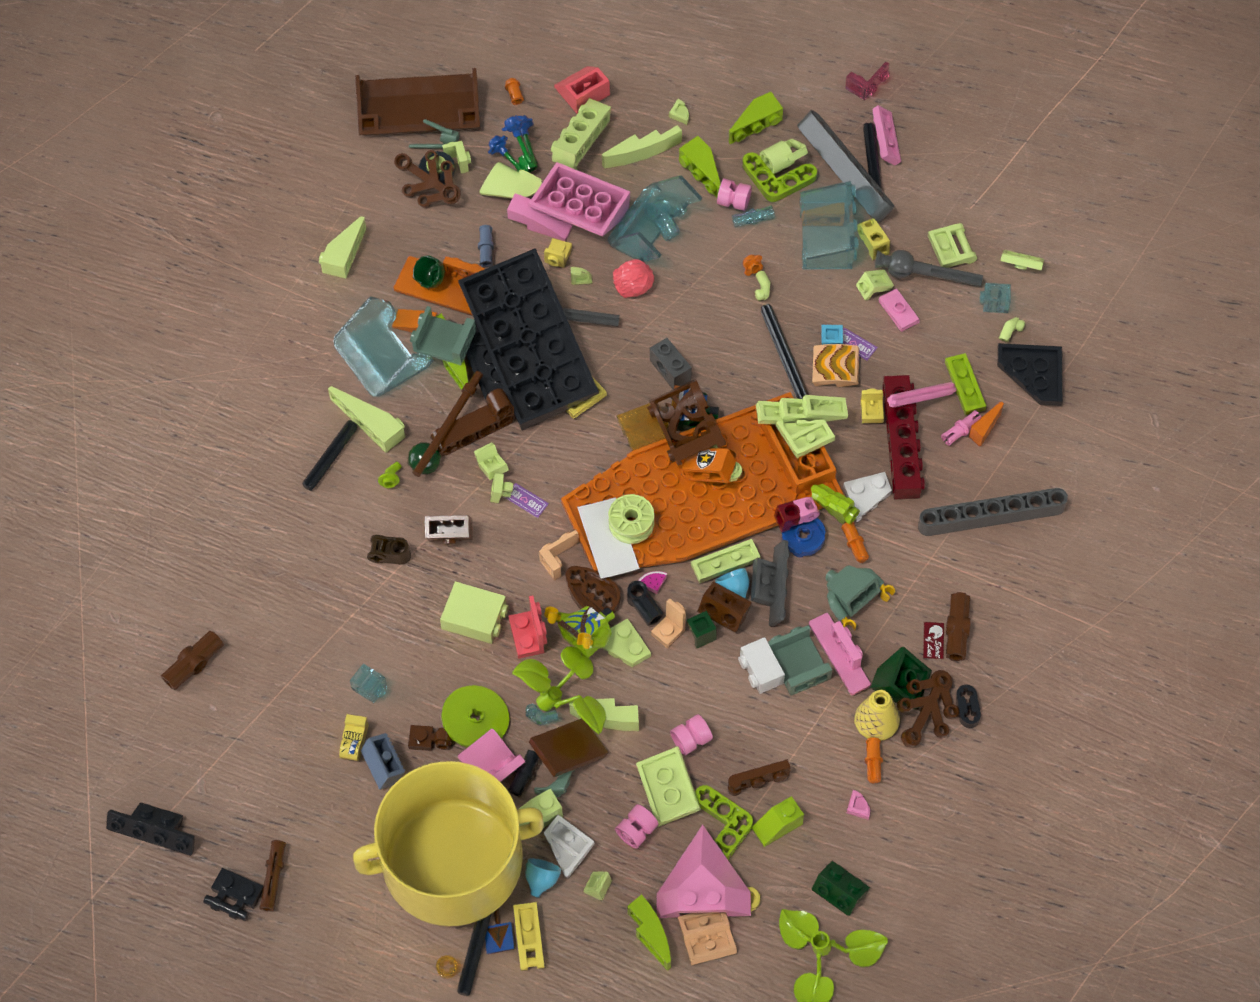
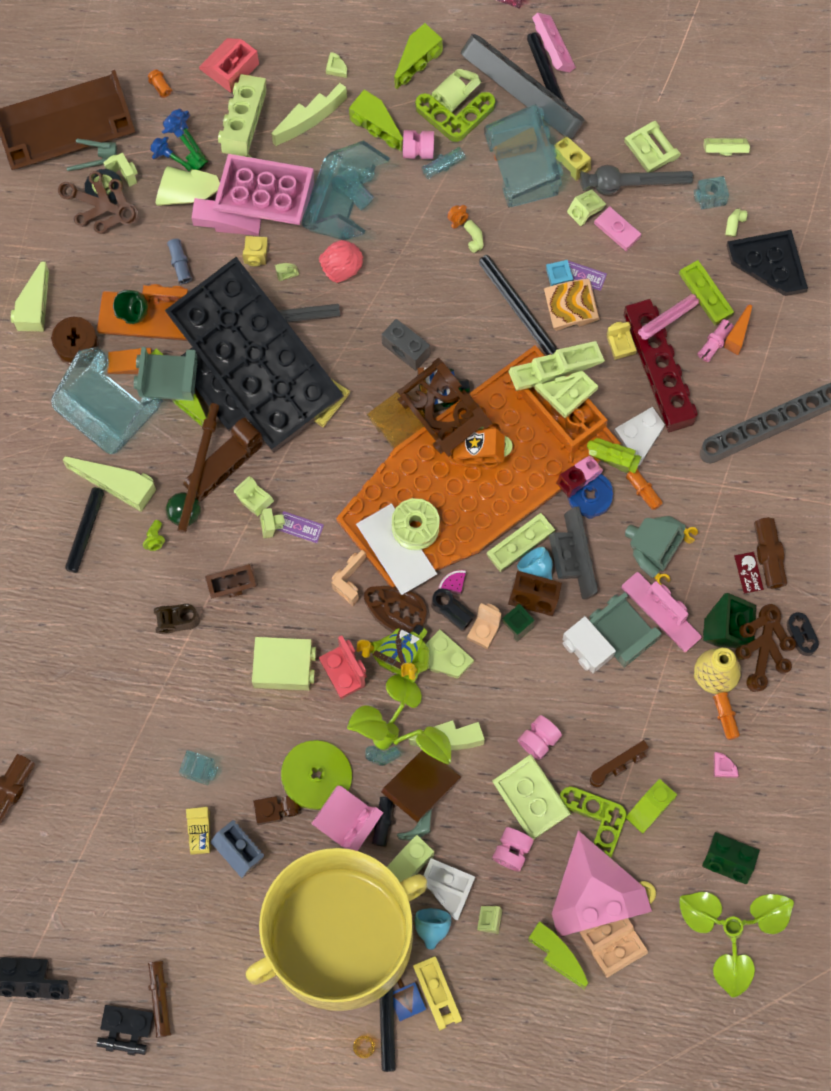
camera: 15 degrees left, 10 degrees up
(369, 283) = (64, 336): none -> reddish brown piece

